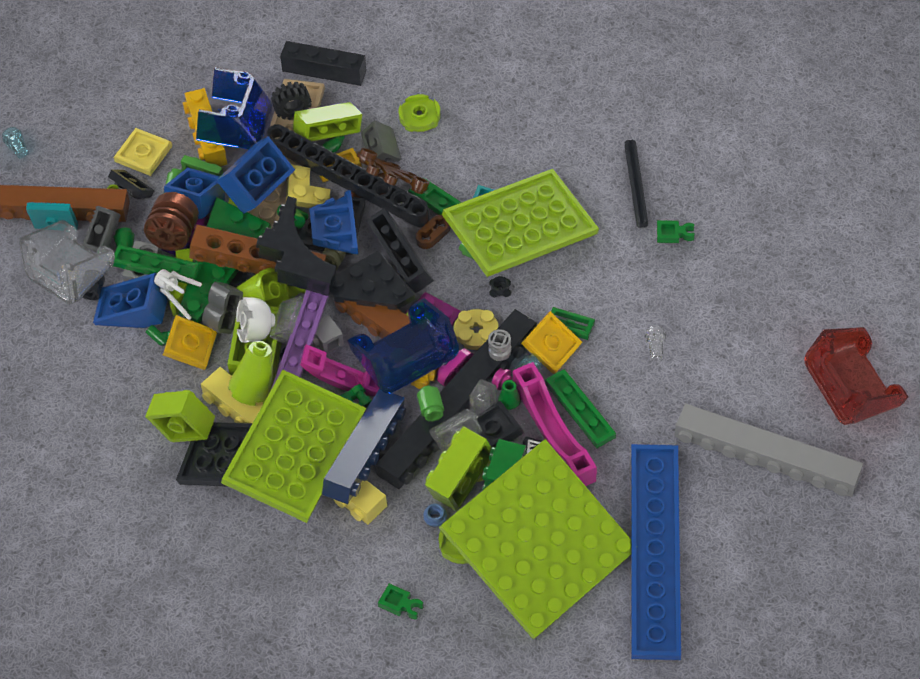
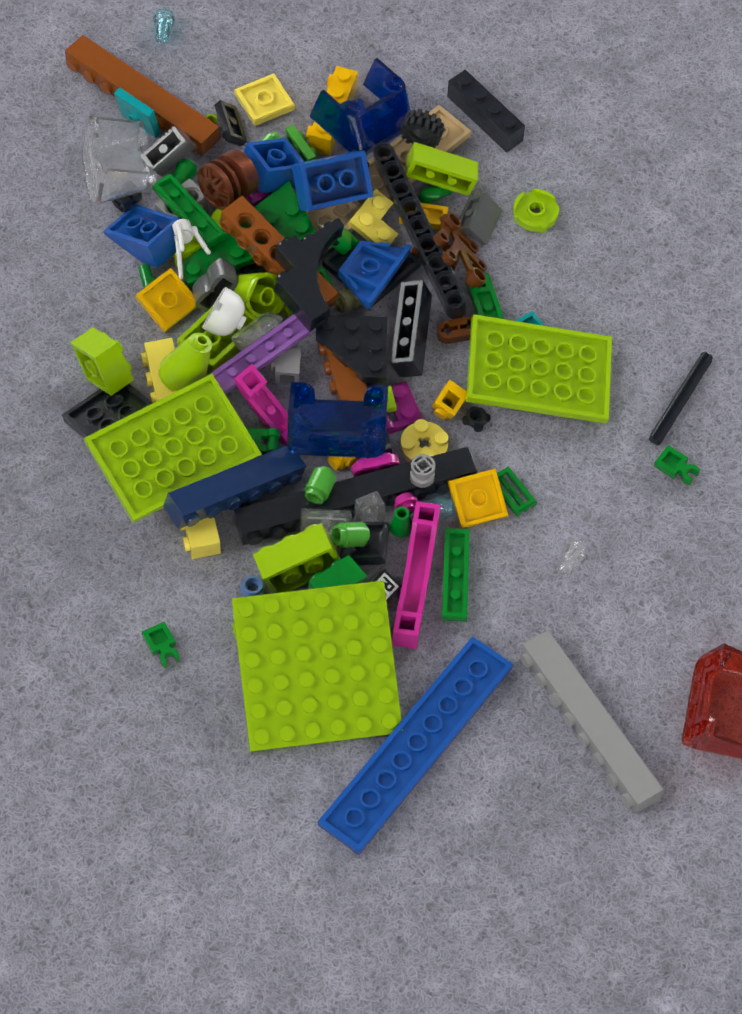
camera: 30 degrees right, 5 degrees up
(471, 285) = (454, 395): none -> yellow brick
(485, 423) = (350, 534): none -> bright green brick

